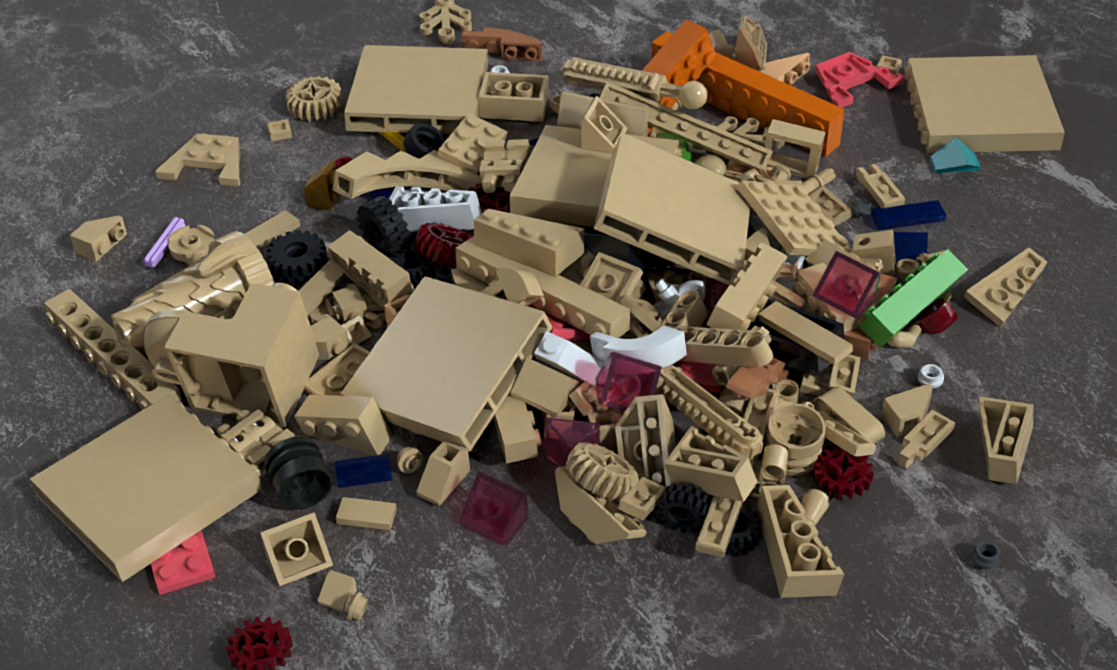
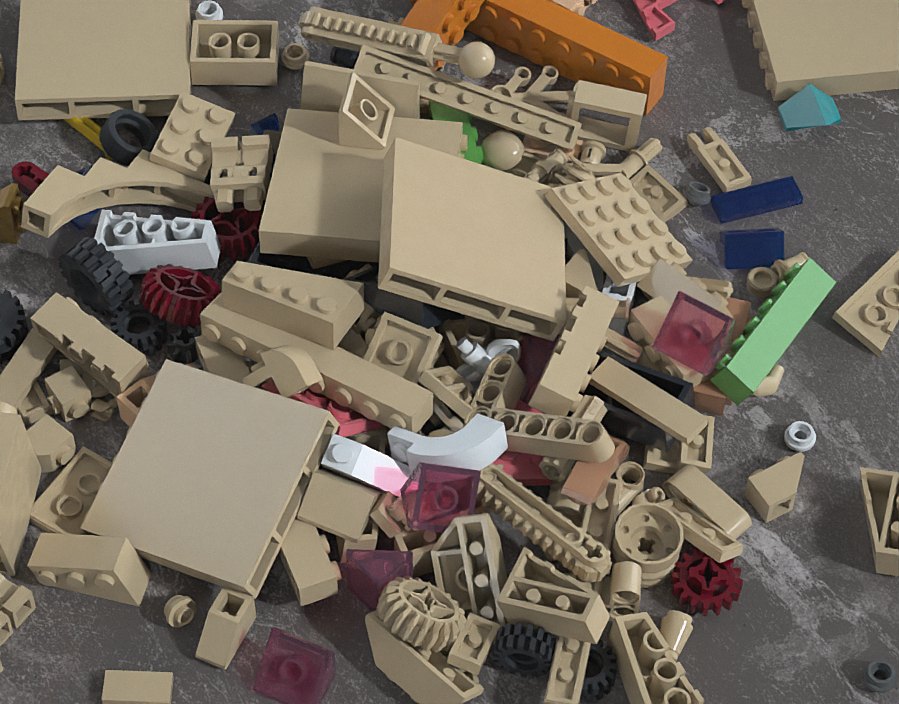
camera: 10 degrees left, 10 degrees up
(298, 473) = (47, 646): pearl dark grey wheel -> none
(356, 330) = (83, 429): tan slope -> none
(363, 470) = (125, 629): clear blue panel -> none
(879, 246) = (722, 262): tan torso -> none
(924, 438) = (799, 524): tan hinge -> none
(936, 316) = (803, 351): dark red piece -> none

